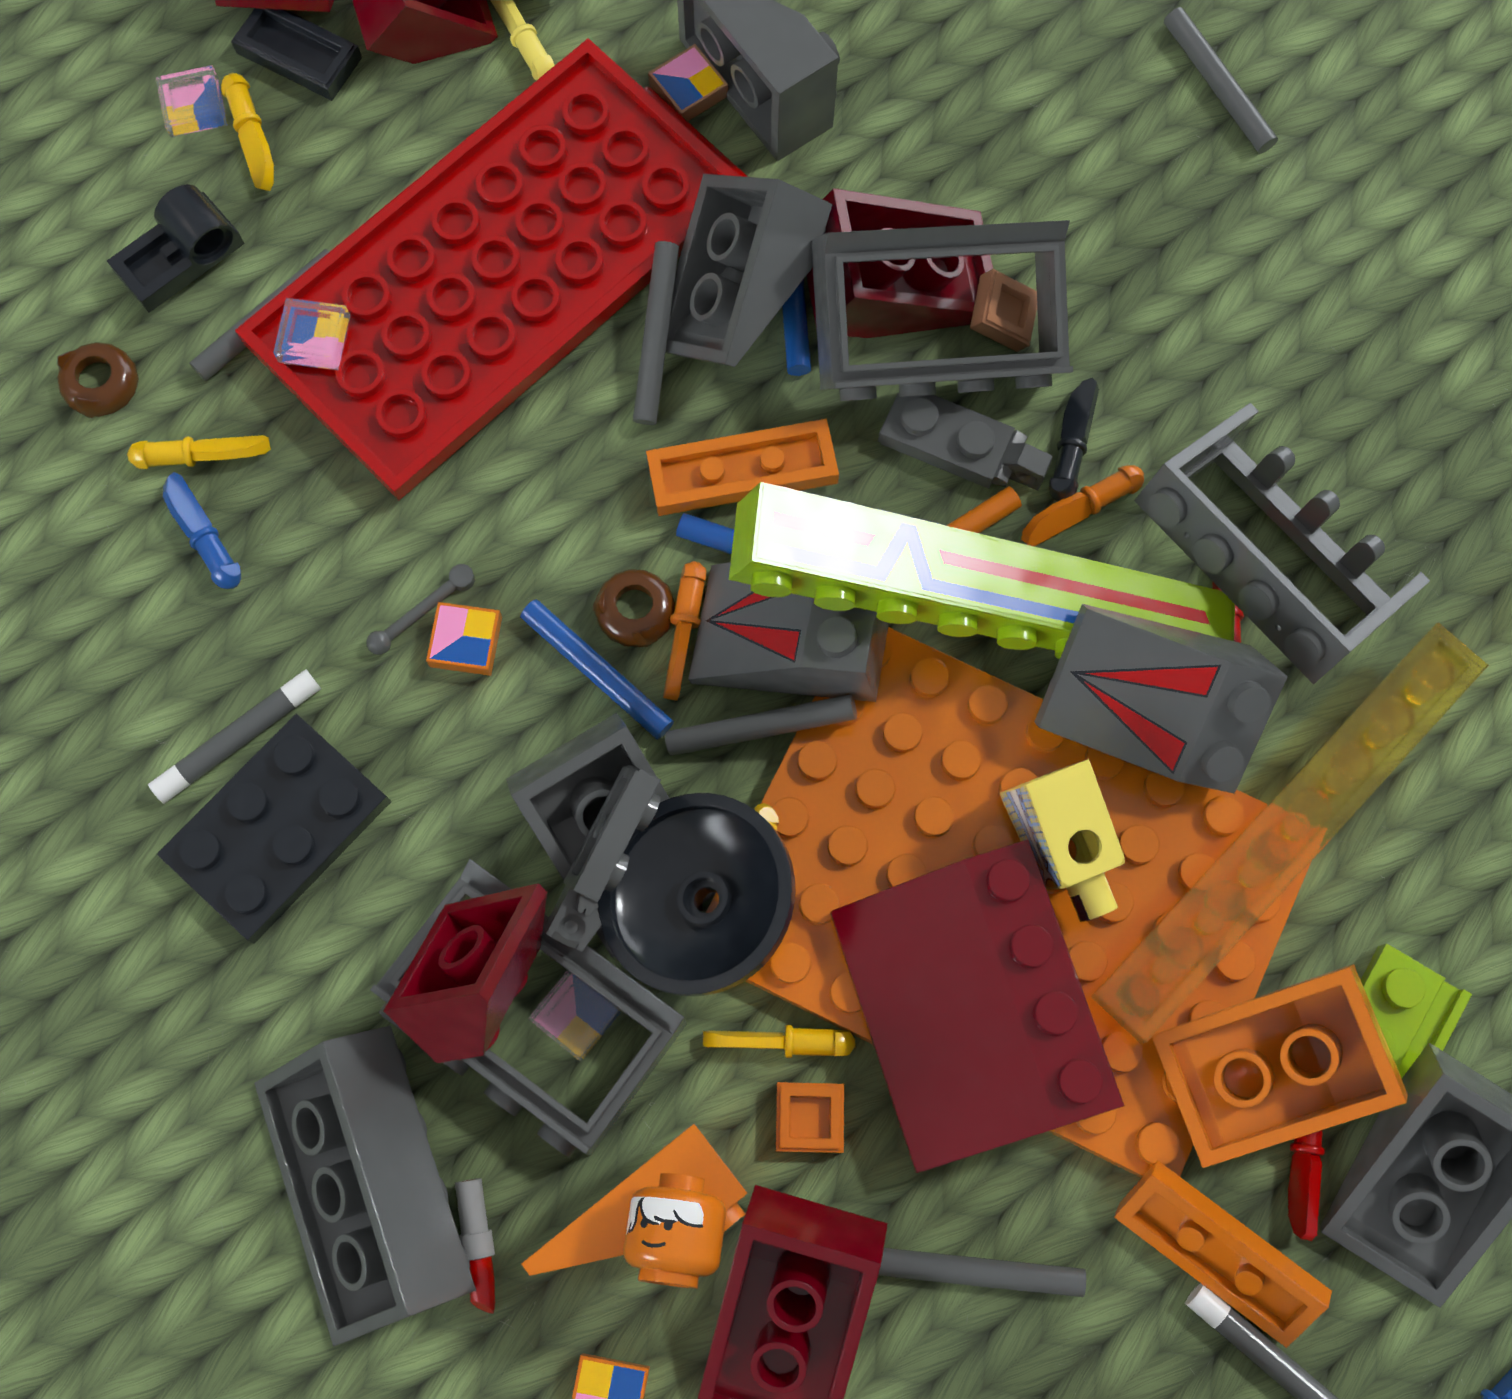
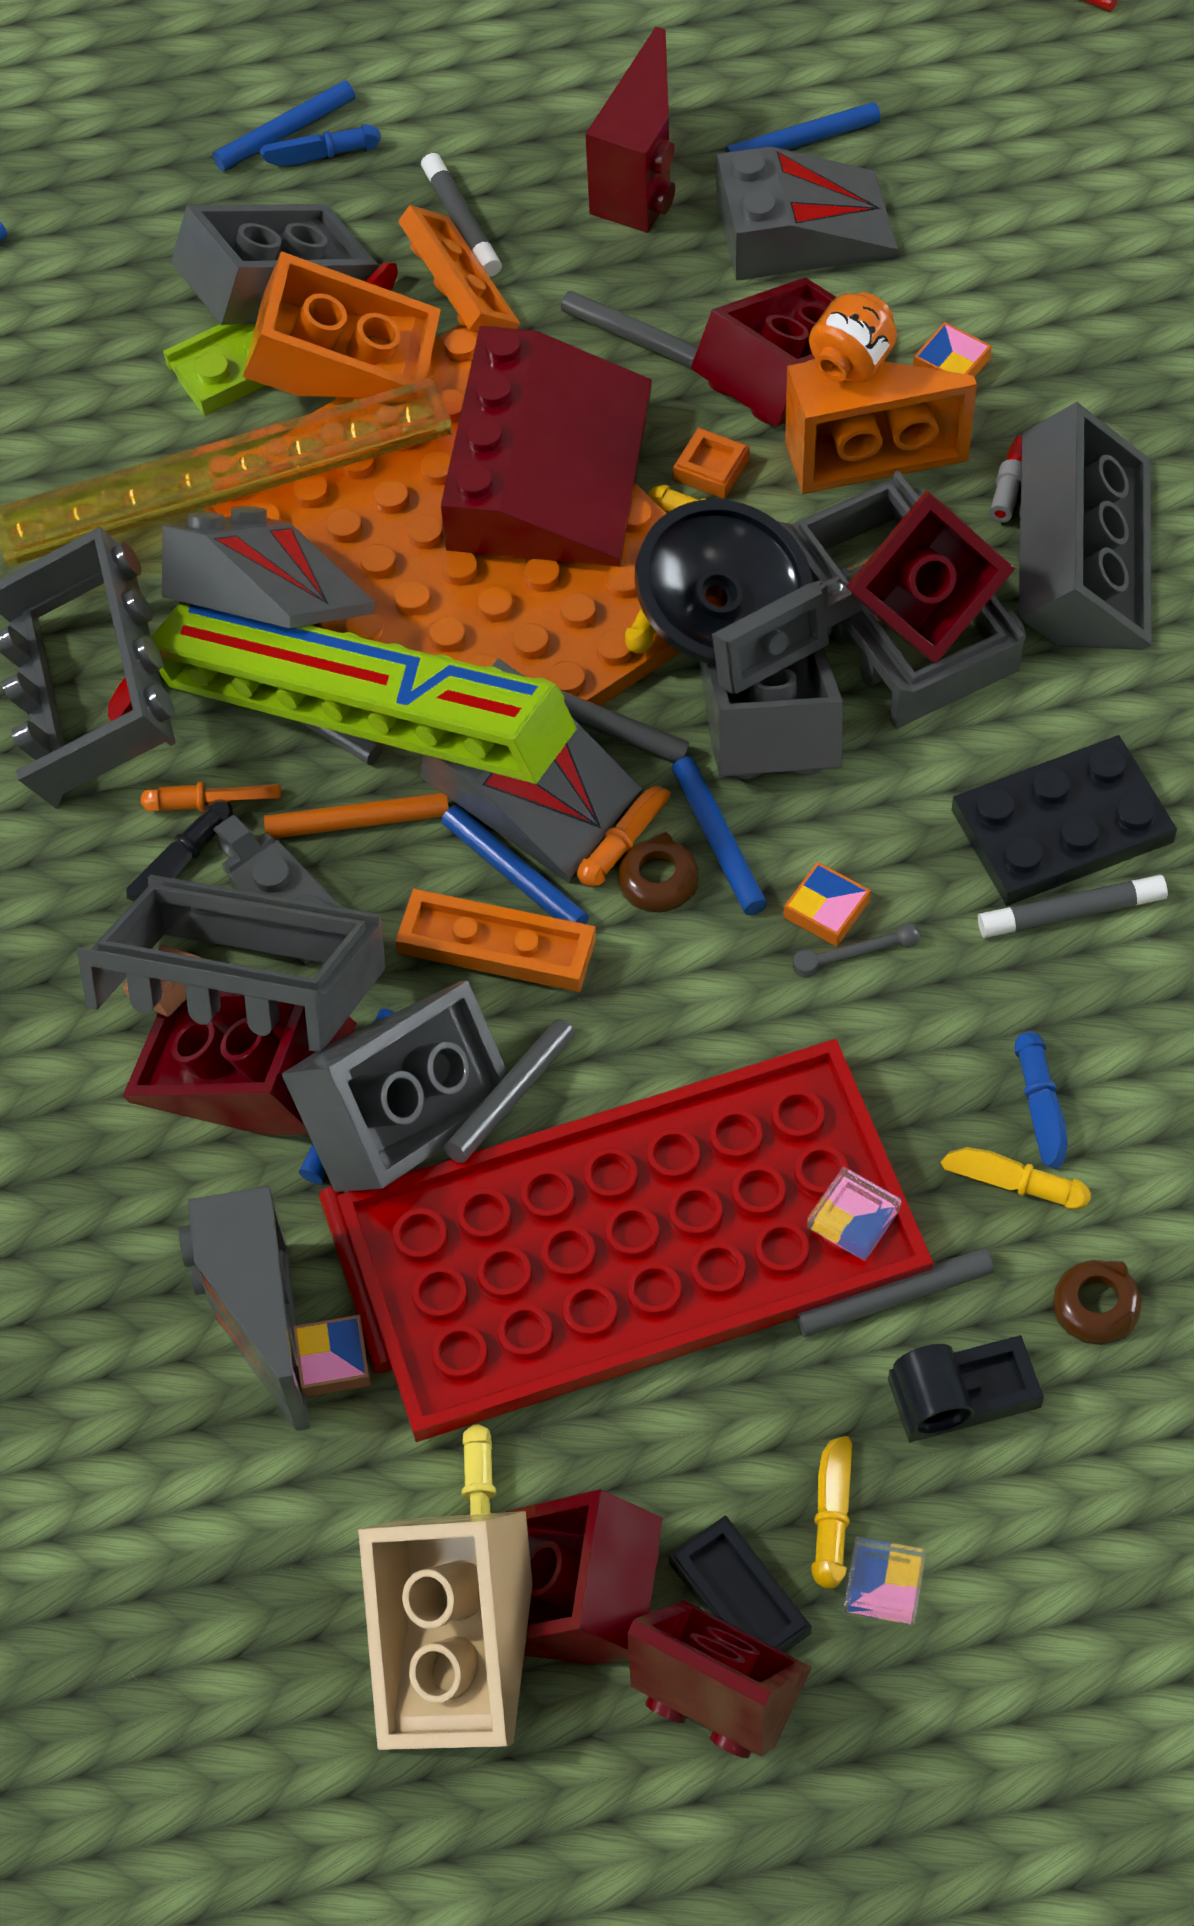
camera: 150 degrees left, 15 degrees down
(1064, 808) = (399, 498): light yellow torso -> none

